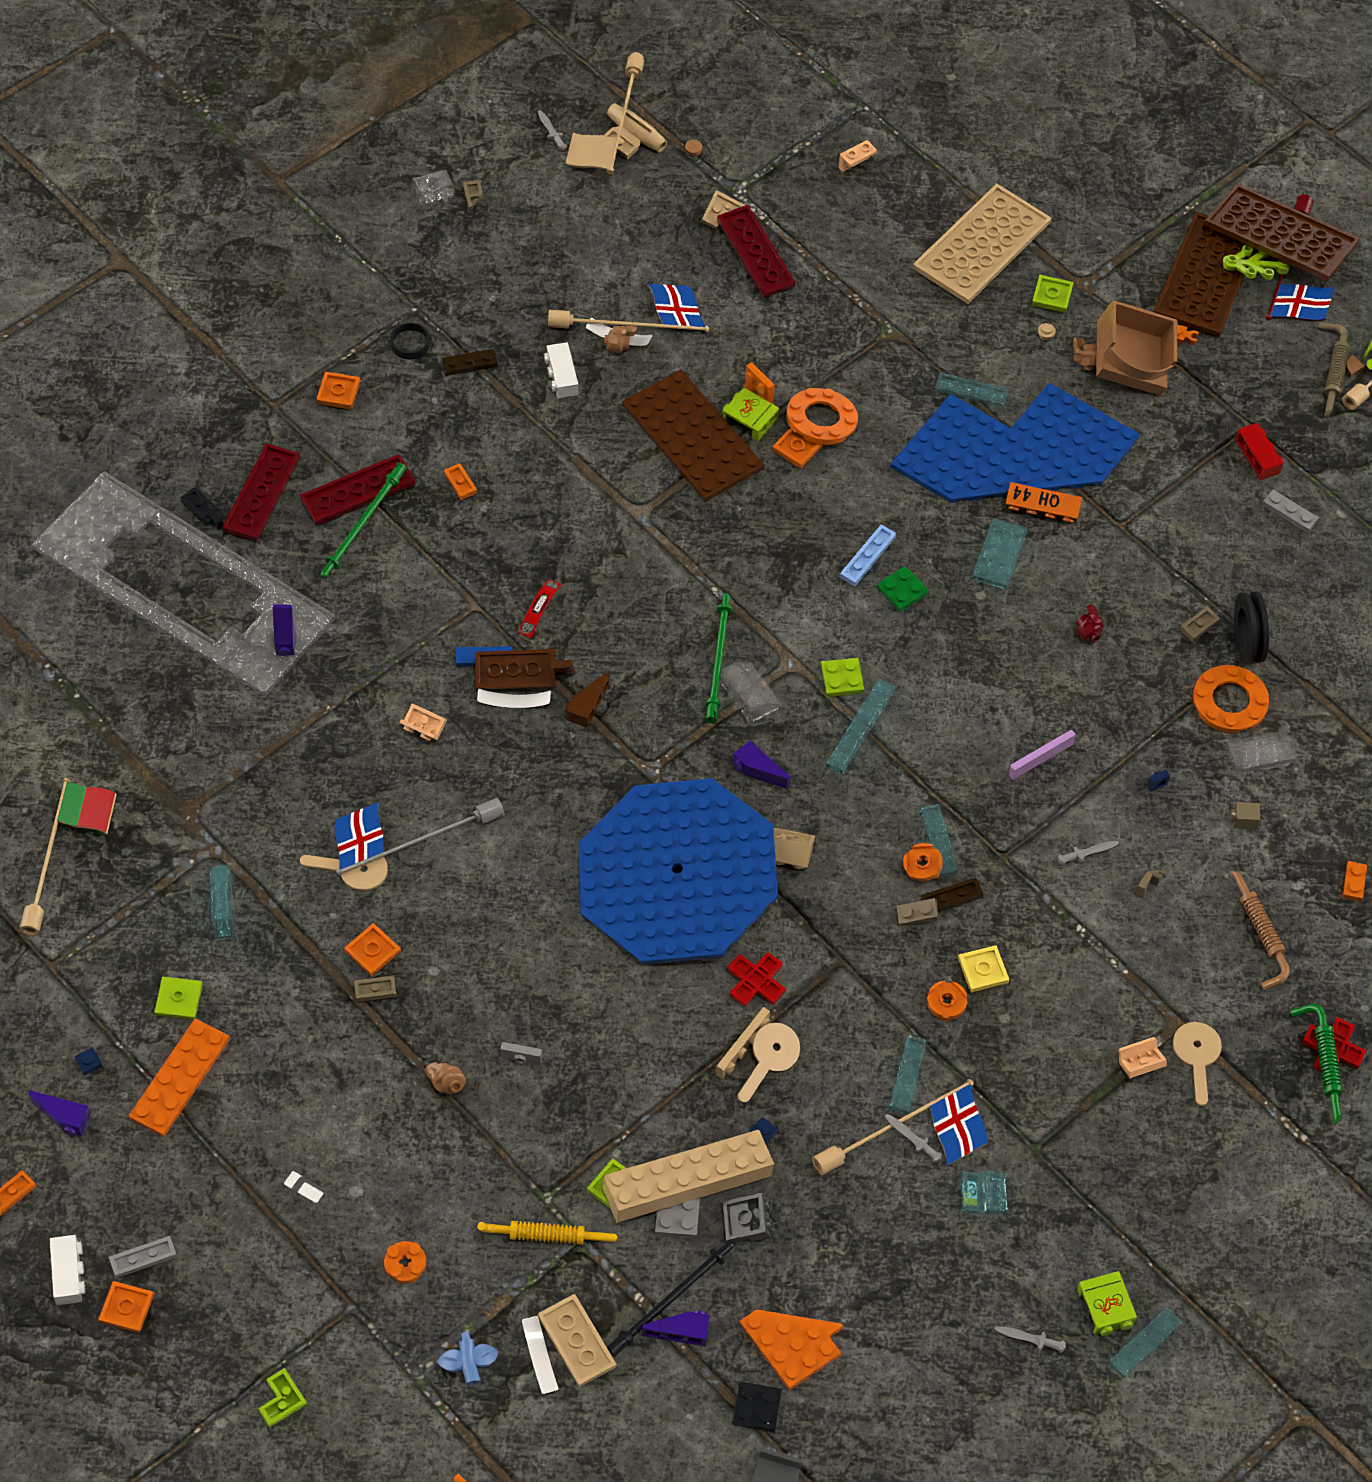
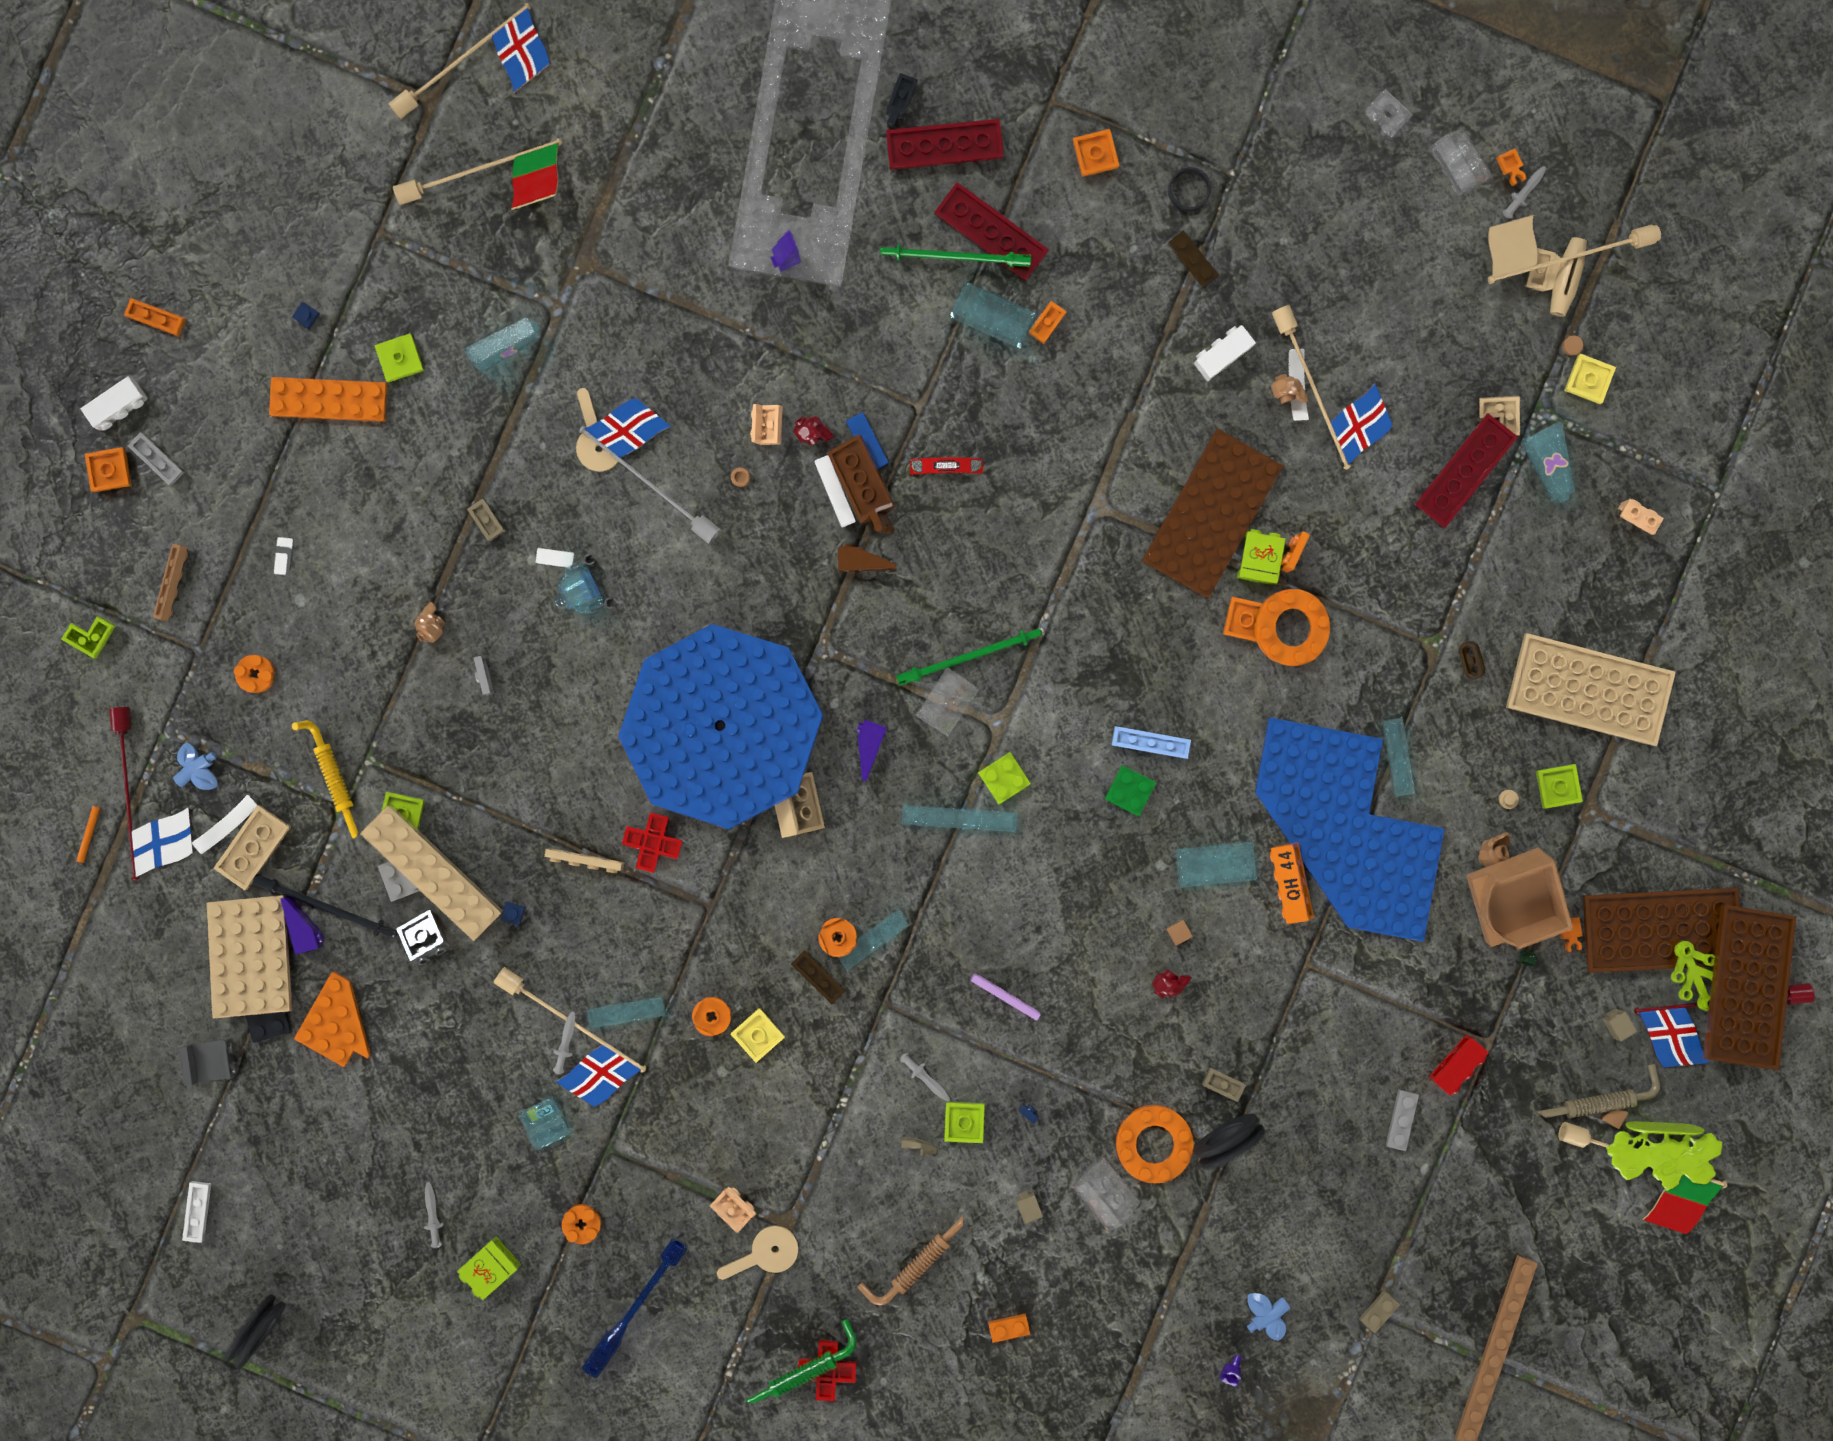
camera: 70 degrees right, 30 degrees up
(65, 1114) = (245, 321): dark purple slope -> none
(271, 1297) = (172, 575): none -> medium nougat plate
(372, 949) = (521, 498): orange plate -> none
(431, 518) = (992, 315): none -> clear light blue slope
(443, 950) = (554, 557): none -> white sticker
(449, 690) = (811, 430): none -> dark red head
(457, 767) = (740, 477): none -> medium nougat tile
(472, 192) = (1402, 156): dark tan slope -> none
(487, 934) = (579, 589): none -> clear light blue torso
(502, 159) = (1461, 161): none -> clear slope
(523, 129) = (1510, 164): none -> orange plate
(523, 1427) = (160, 840): none -> flag
(685, 1391) = (248, 957): none -> tan plate
(727, 146) = (1590, 378): none -> light yellow plate
(768, 1058) = (581, 888): tan piece -> none
(780, 195) = (1551, 461): none -> clear light blue slope
(916, 308) = (1470, 660): none -> dark brown plate
(917, 912) = (784, 954): dark tan plate -> none
(1047, 603) = (1179, 932): none -> medium nougat tile
(1101, 1191) = (573, 1232): none -> orange plate
(1144, 835) = (964, 1122): none -> lime plate
(1145, 1342) = (473, 1311): clear light blue tile -> none
(1189, 369) = (1528, 958): none -> clear green plate
(1229, 1224) = (612, 1340): none -> clear blue bar
(1274, 331) = (1619, 1024): none -> dark tan brick

